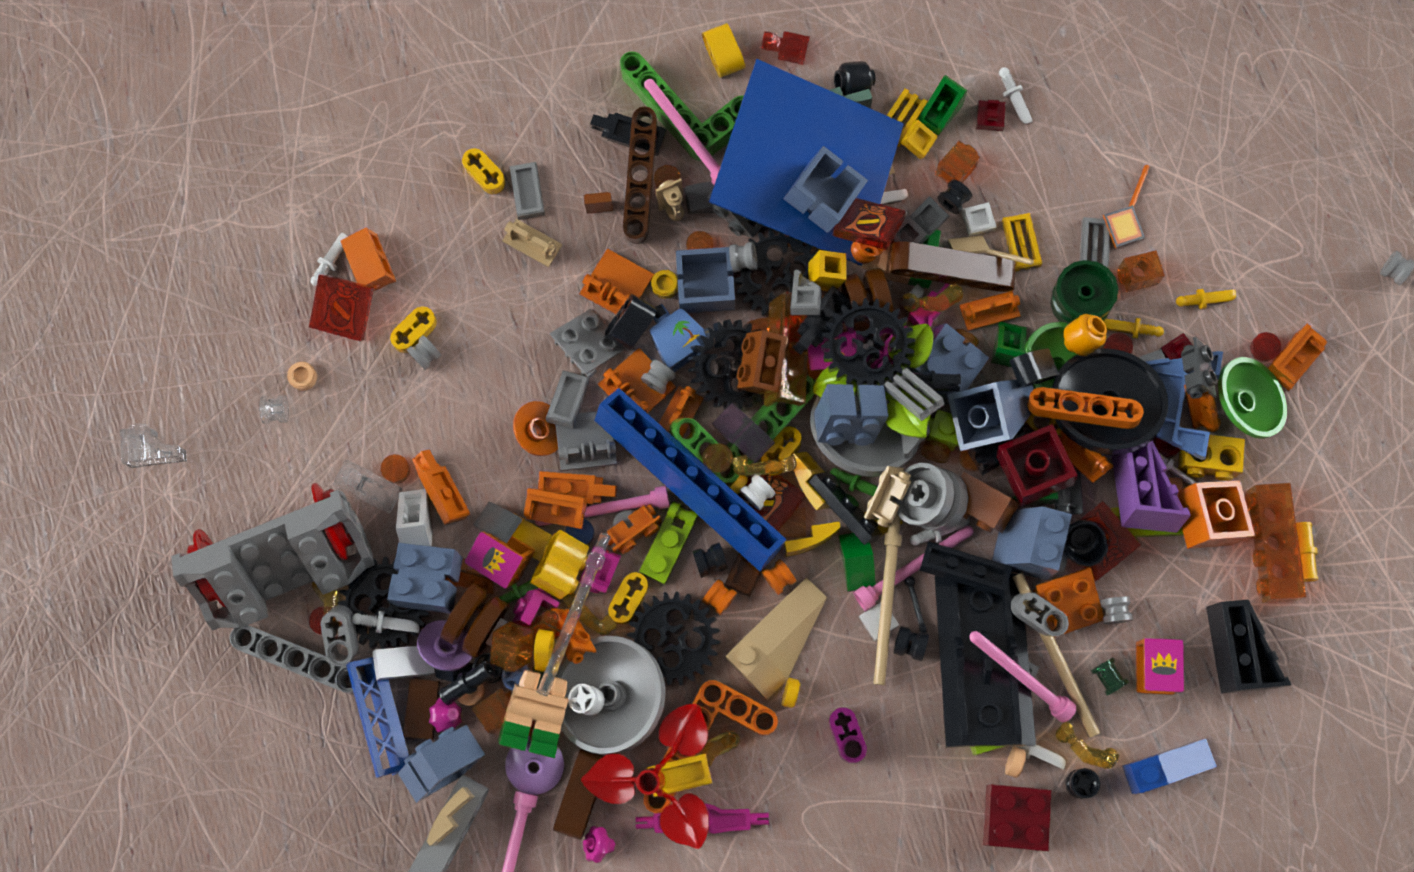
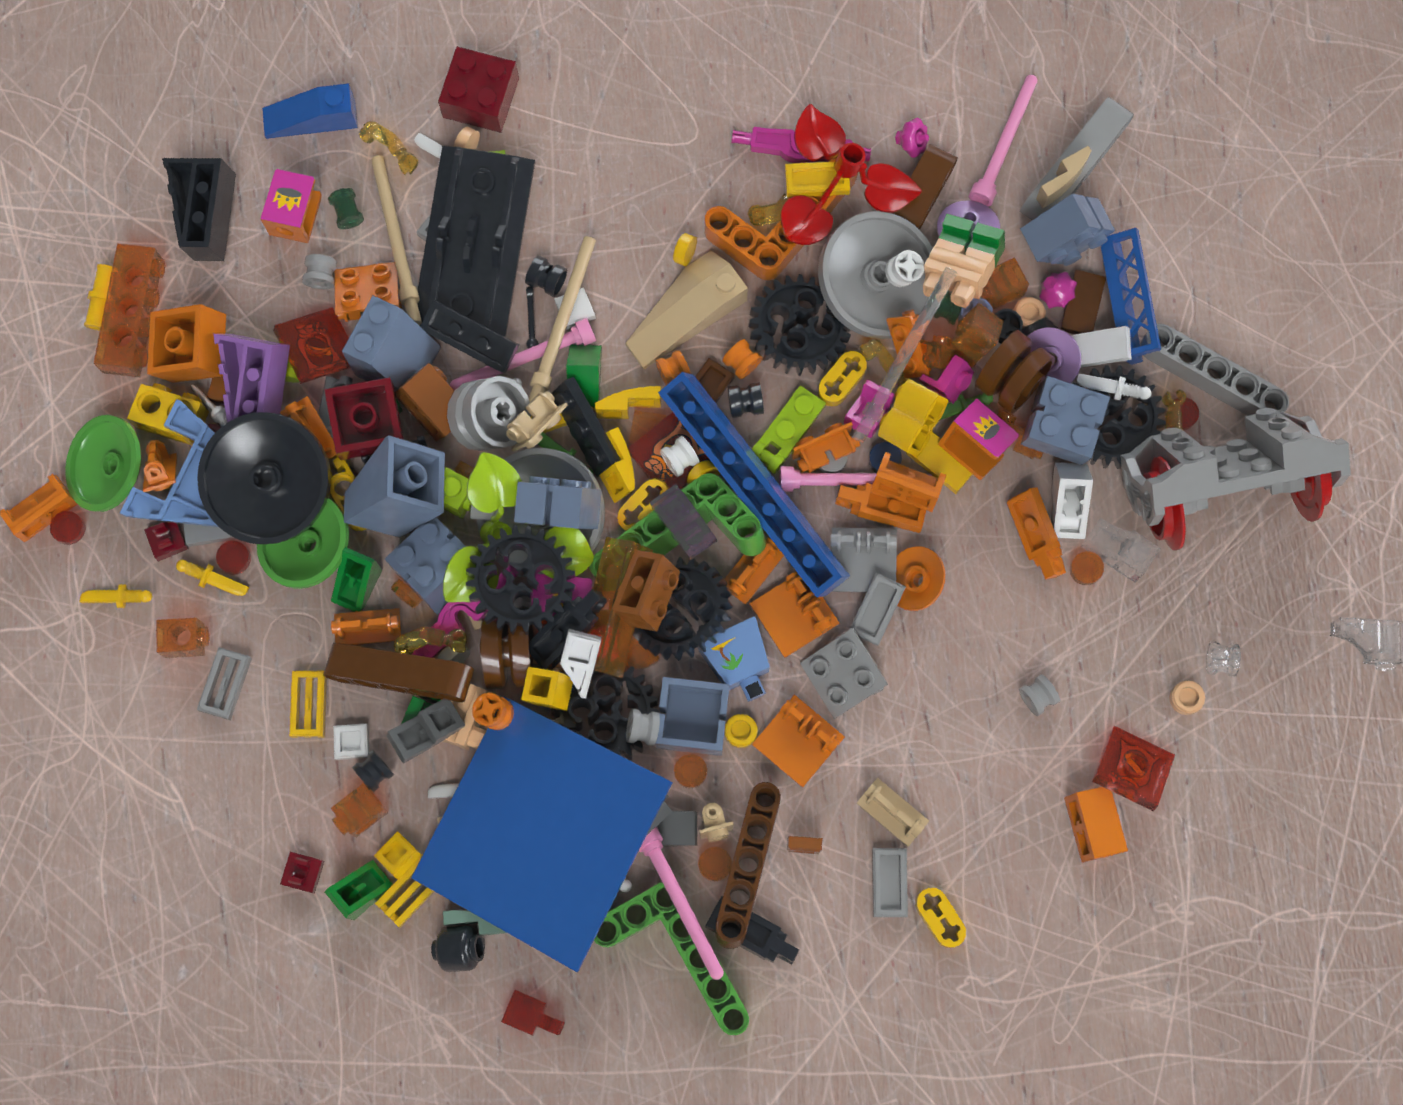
camera: 175 degrees left, 0 degrees up
(328, 261) = (1142, 837): white piece -> none
(346, 637) = (1166, 378): light grey beam -> none
(412, 324) = (1054, 735): yellow beam -> none
(467, 682) = (1030, 308): black pin -> none
(497, 522) = (976, 476): dark grey slope -> none
(543, 649) = (943, 320): yellow beam -> none
(630, 322) = (790, 680): black beam -> none
(658, 376) = (768, 610): light grey wheel -> none
(717, 457) = (717, 495): clear orange tile -> none
(723, 50) = (613, 1023): yellow beam -> none
(762, 468) = (690, 481): clear yellow arm -> none
(823, 195) = (530, 775): sand blue piece -> none
(838, 731) = (633, 194): magenta beam -> none
(870, 223) = (485, 731): clear red tile -> none
(908, 376) = (496, 525): light grey tile -> none
(939, 381) = (456, 530): black axle -> none
(977, 244) = (367, 705): tan piece -> none
(1014, 93) = (265, 892): white piece -> none
(1034, 367) = (338, 522): black beam -> none
(1035, 620) = (414, 288): light grey beam -> none
(1060, 706) = (406, 187): bright pink piece -> none
(1084, 289) = (241, 602): dark green wheel -> none
(1084, 412) = (294, 466): orange beam -> none
(1085, 334) = (269, 557): light orange head -> none
(1085, 543) = (331, 332): black hair -> none
(1088, 781) = (400, 104): black wheel -> none
(1124, 223) = (182, 701): piece -> none
(1198, 359) = (149, 505): dark grey hinge -> none

